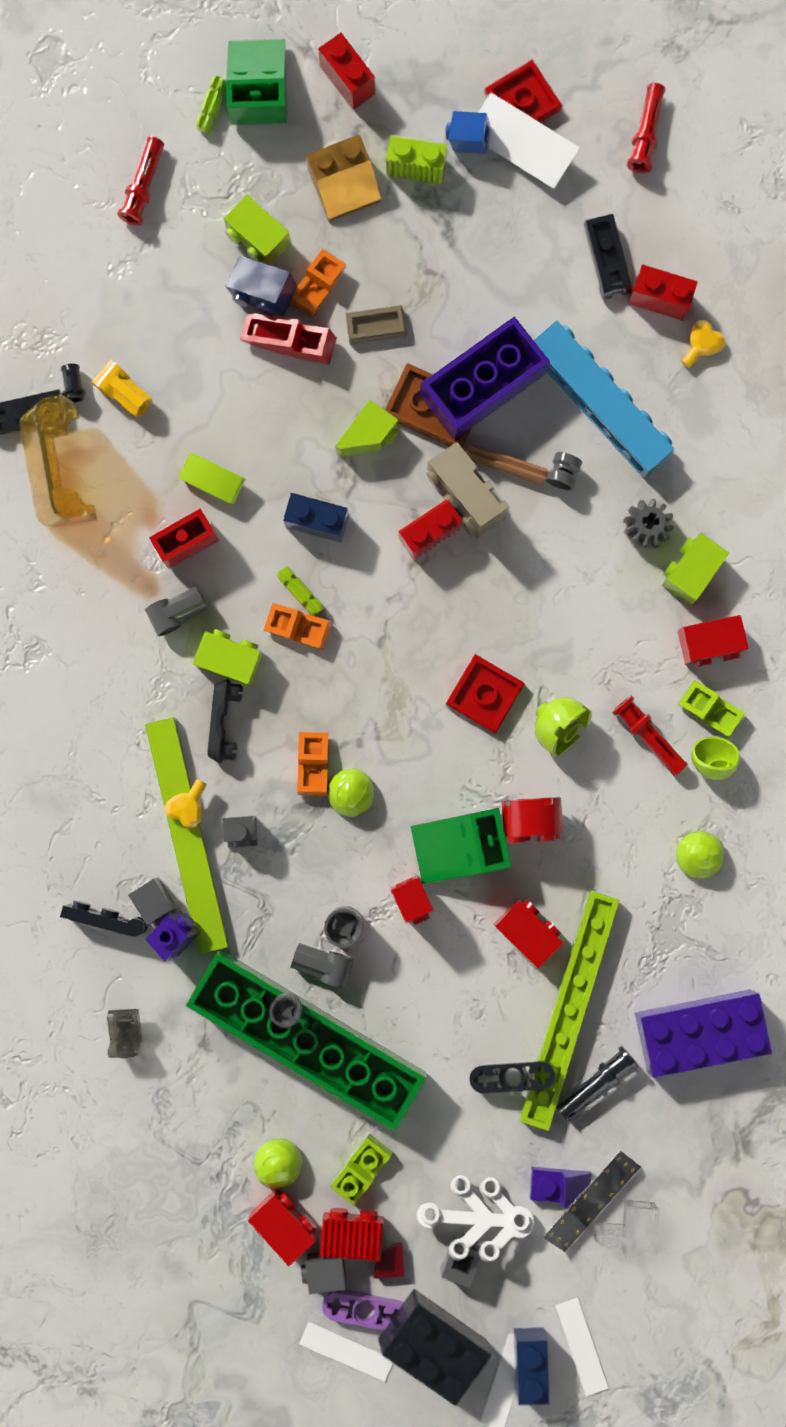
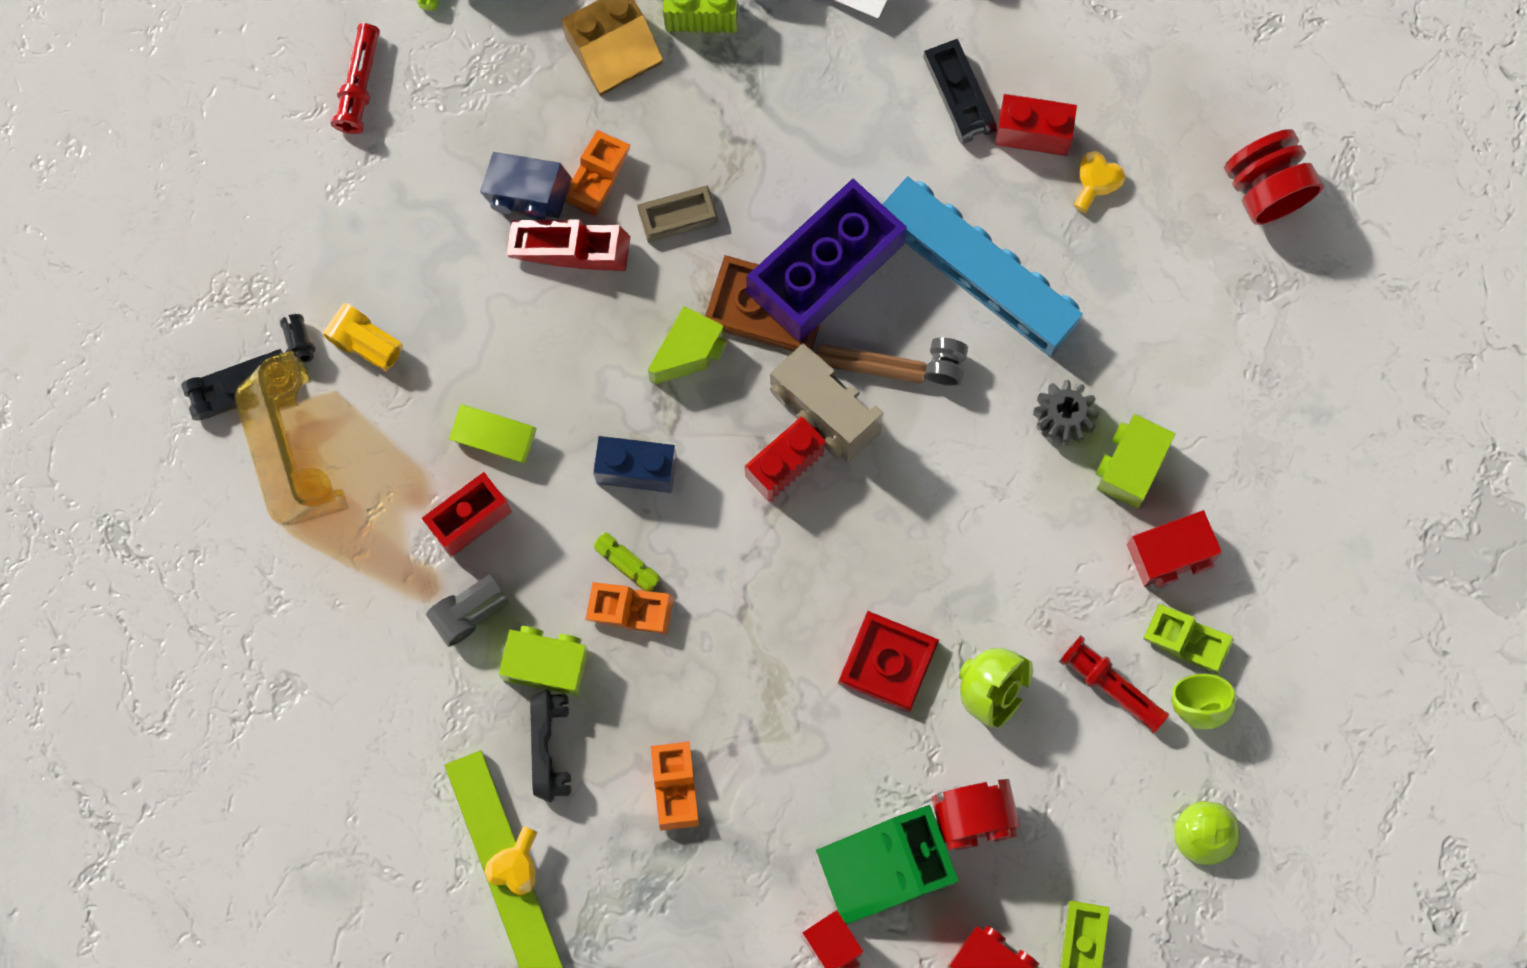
camera: 10 degrees left, 10 degrees down
(240, 831) = (589, 889): dark grey brick -> none
(256, 231) = (511, 119): lime brick -> none
(351, 792) = (730, 817): lime piece -> none

